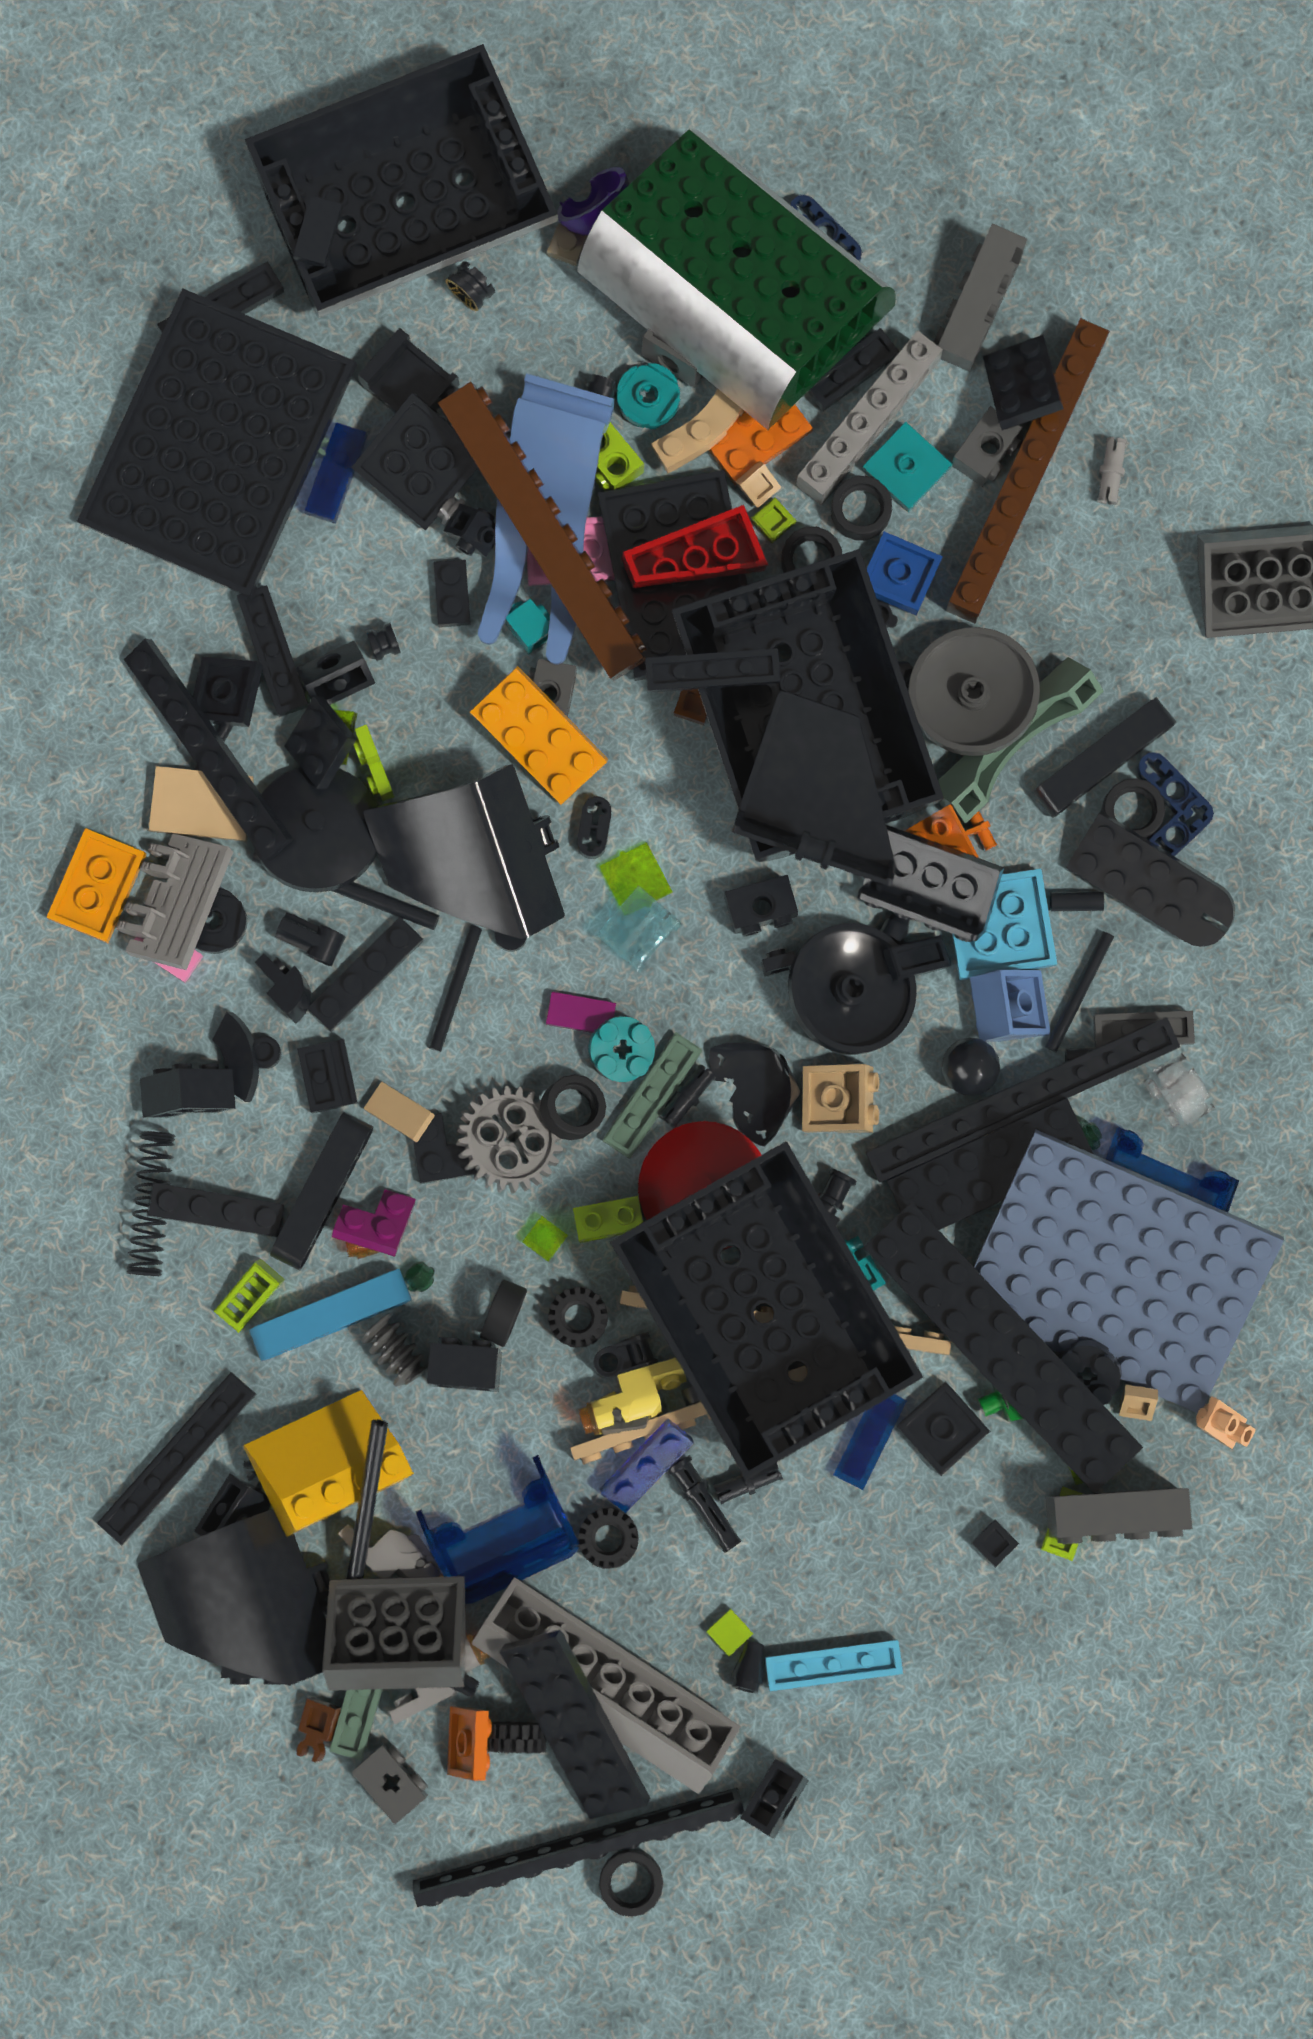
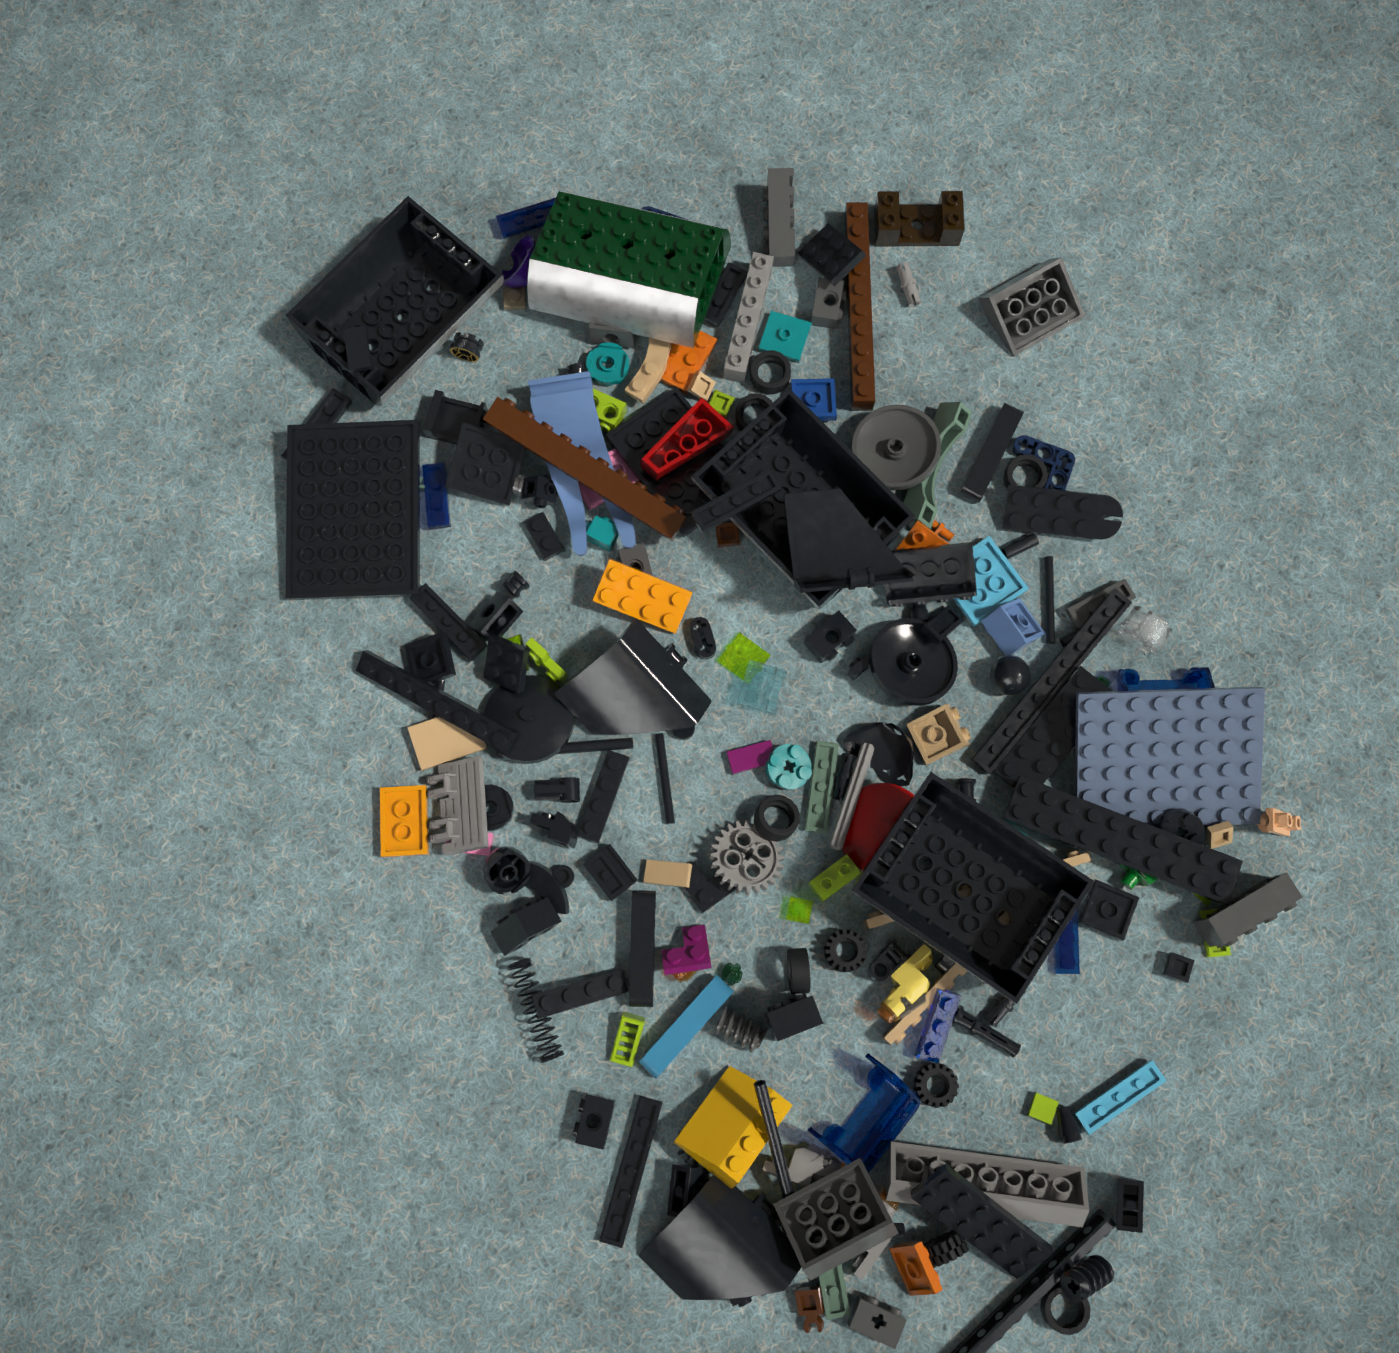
camera: 25 degrees left, 5 degrees down
(178, 1367) = (594, 1136): none -> black brick
(195, 1010) = (506, 870): none -> black cylinder
(634, 137) = (524, 218): none -> clear blue plate
(673, 1856) = (1086, 1278): none -> black piece
(683, 1125) = (851, 796): none -> light grey axle
(1201, 398) = (941, 222): none -> dark brown plate

